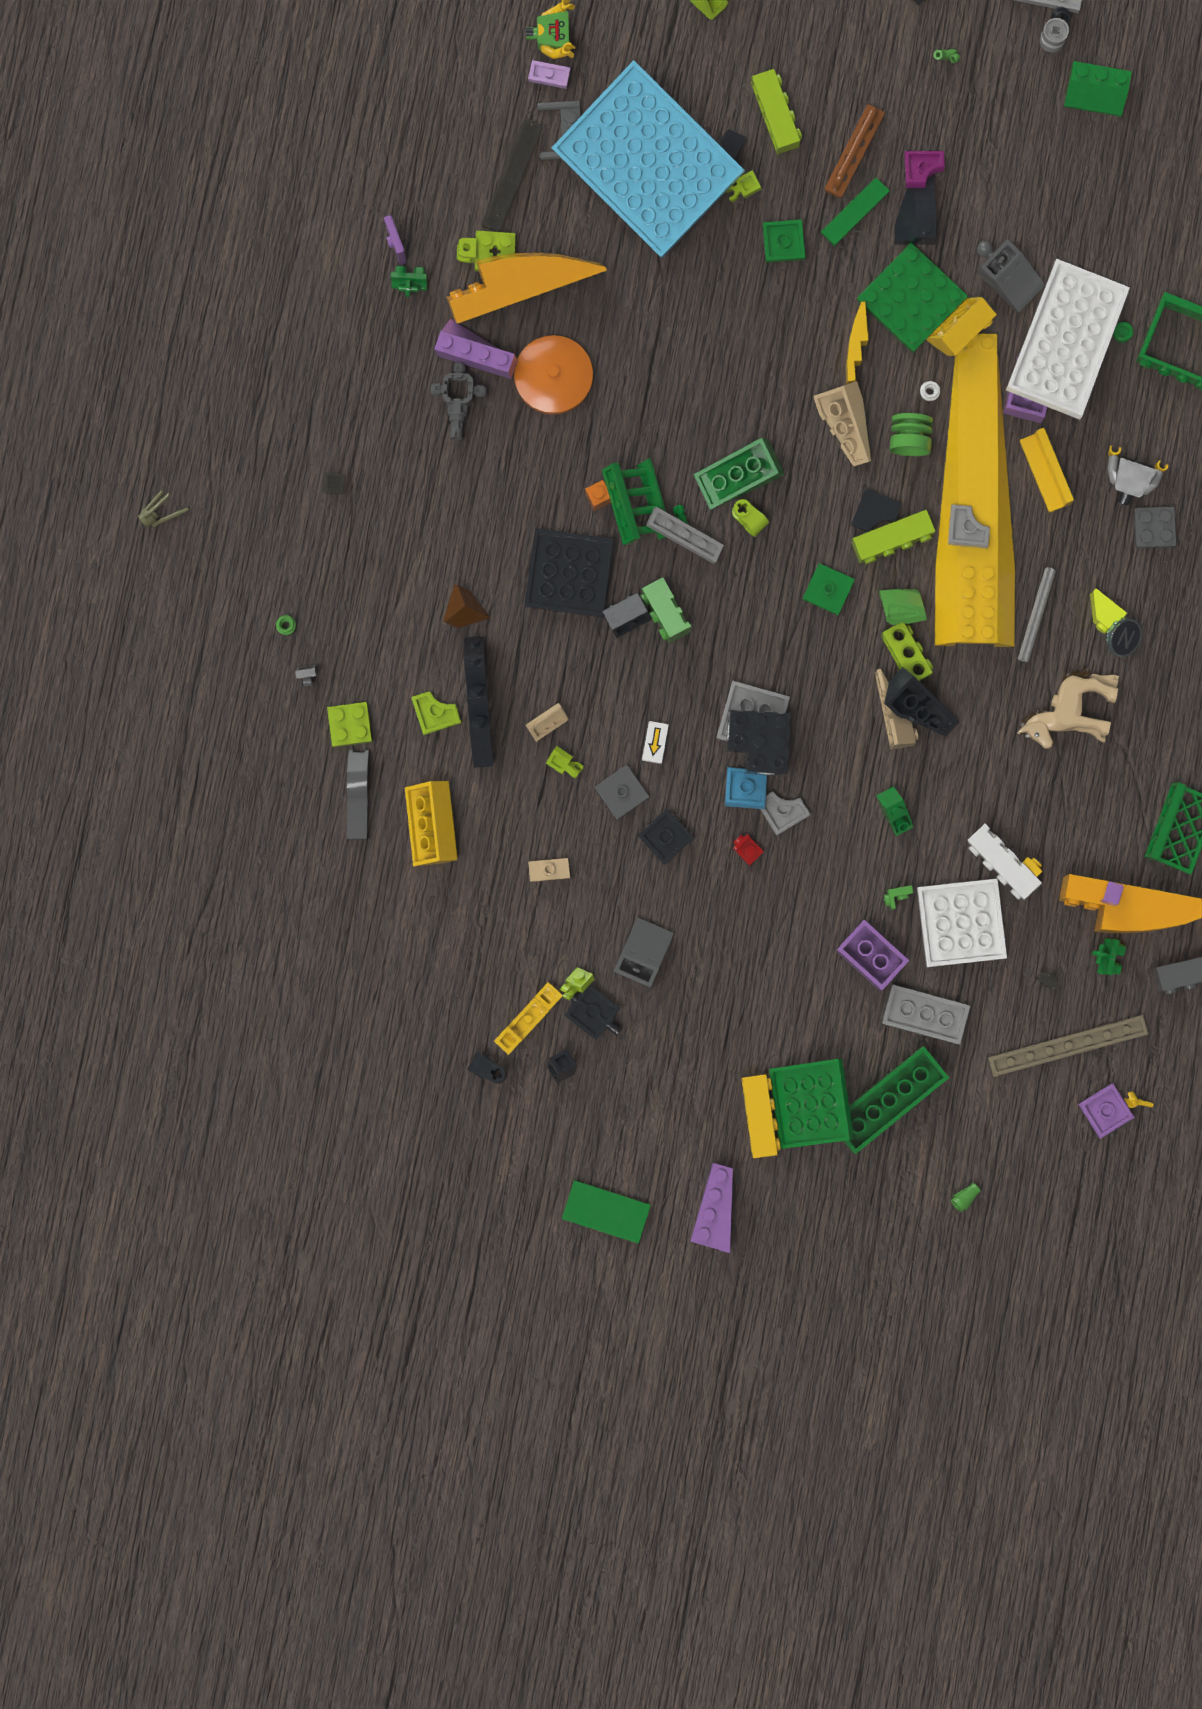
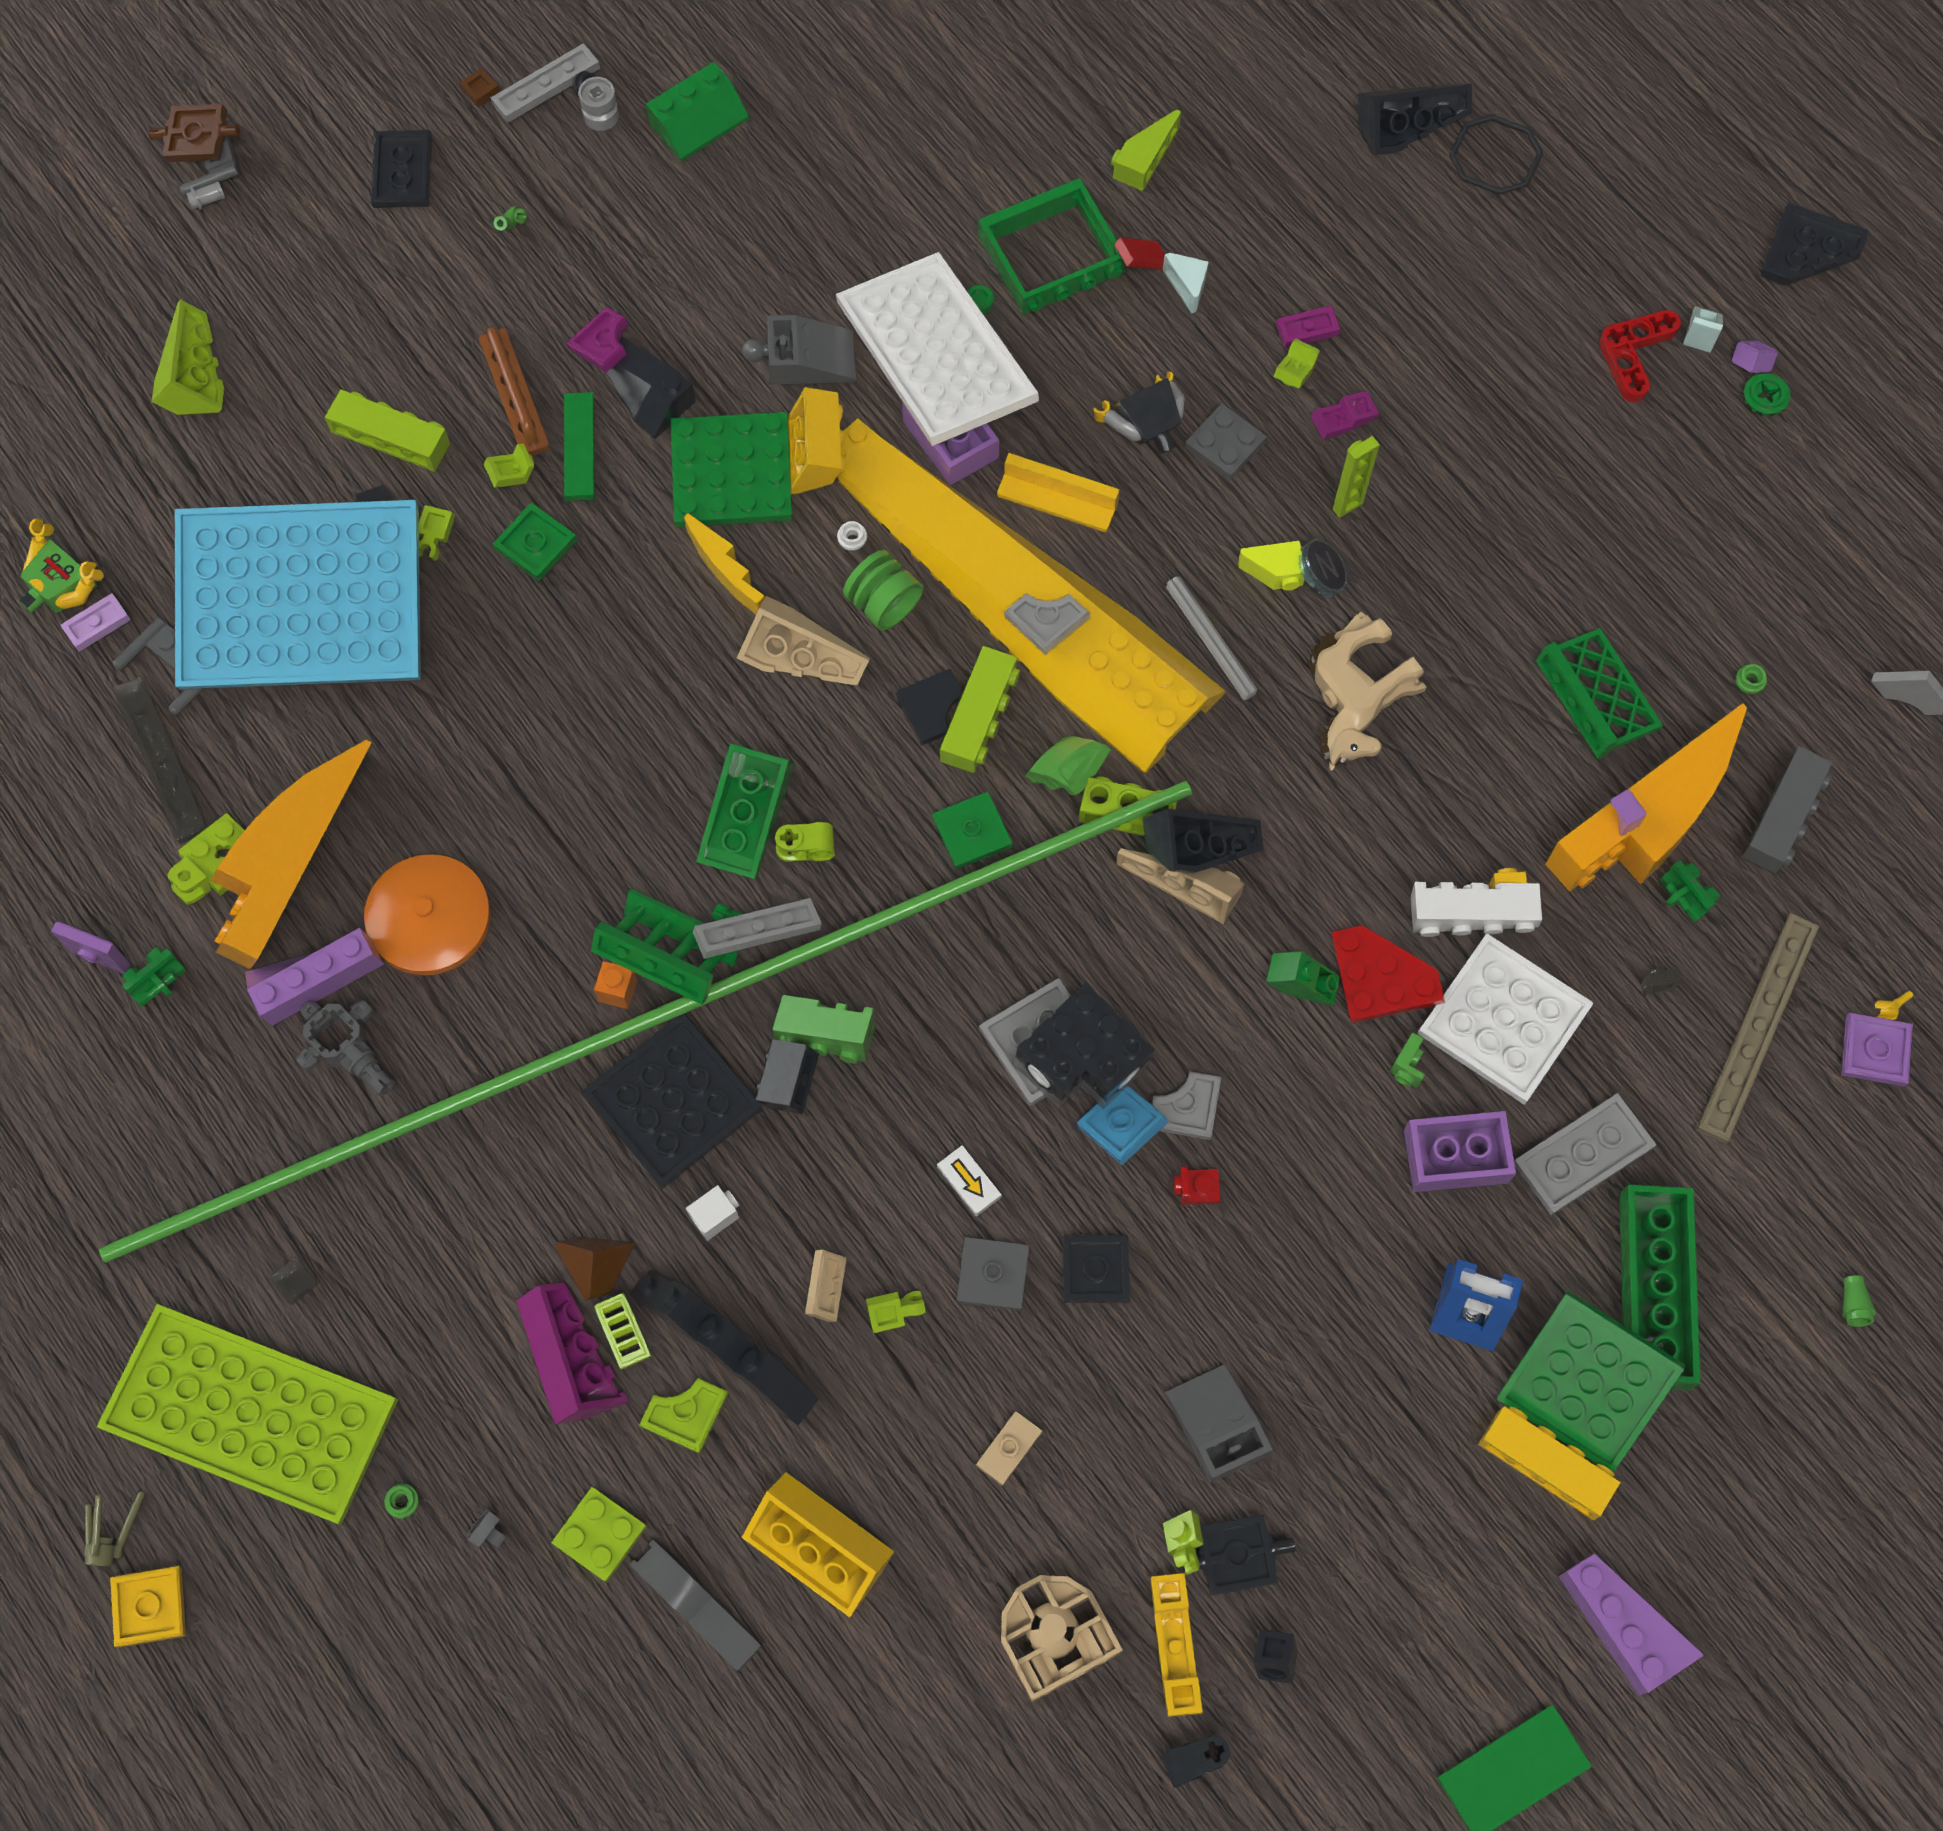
camera: 50 degrees left, 15 degrees down
(145, 560) = (148, 1606): none -> yellow plate
(261, 521) = (248, 1414): none -> lime plate
(411, 636) = (567, 1356): none -> magenta wedge
(457, 637) = (610, 1305): none -> lime slope
(479, 961) = (1049, 1641): none -> tan connector
(534, 640) = (713, 1212): none -> white brick
(604, 530) = (640, 1023): none -> bright green piece
(802, 1022) = (1474, 1305): none -> blue brick
(811, 191) = (510, 468): none -> lime bracket
(929, 847) = (1382, 977): none -> red plate
(1183, 611) = (1355, 475): none -> lime plate

